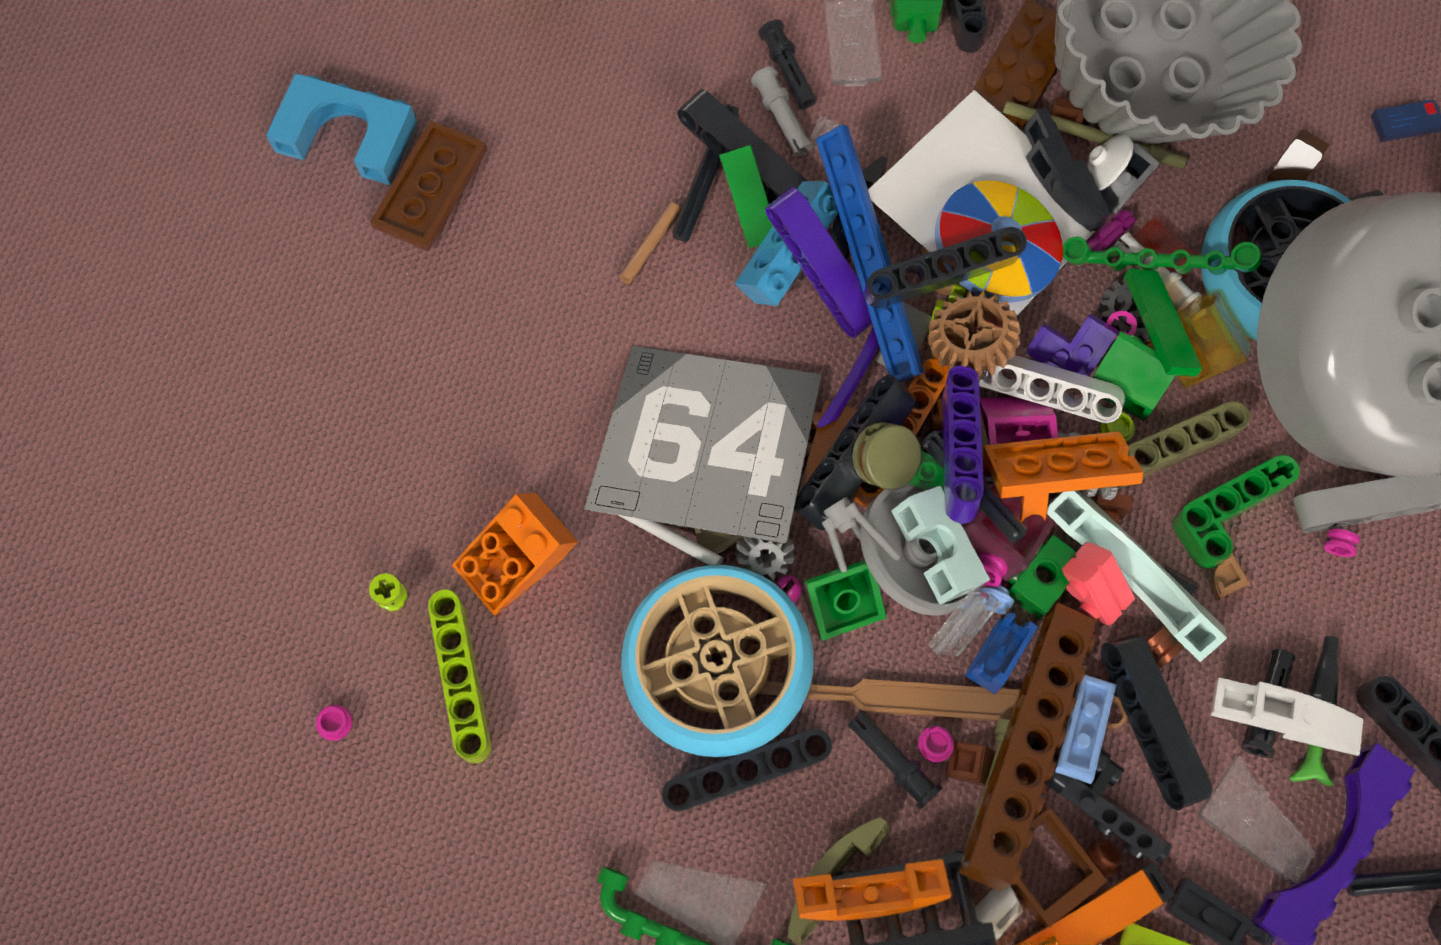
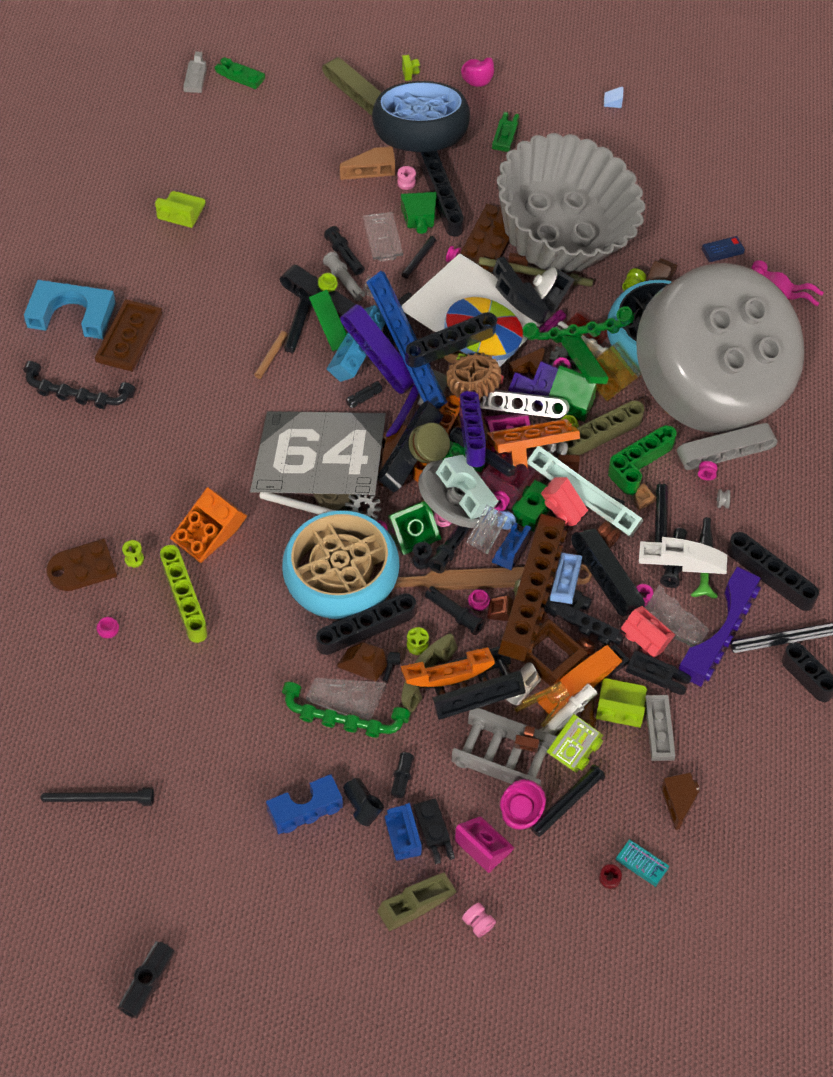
camera: 10 degrees left, 15 degrees down
(308, 601) = (81, 566): none -> reddish brown plate
(342, 287) = (81, 396): none -> black bar
(733, 843) = (364, 661): none -> reddish brown slope
(753, 129) = (327, 282): none -> lime plate
(783, 839) = (393, 659): none -> black hand
(790, 333) = (364, 394): none -> black axle
(834, 806) = (417, 635): none -> lime wheel
(846, 516) = (407, 477): light grey plant -> none
(848, 641) = (419, 553): none -> black bush
(892, 650) = (446, 551): none -> black pin
(906, 86) = (418, 257): none -> black bar
(962, 88) = (452, 253): none -> dark pink bush
(1069, 308) = (527, 364): none -> reddish brown slope
(1212, 849) = (647, 632): none -> coral brick
(1219, 760) = (647, 590): none -> dark pink bush
(1254, 622) = (661, 512): none -> black axle
(1255, 168) = (634, 277): none -> lime wheel
(1363, 600) = (723, 498): none -> light grey bush

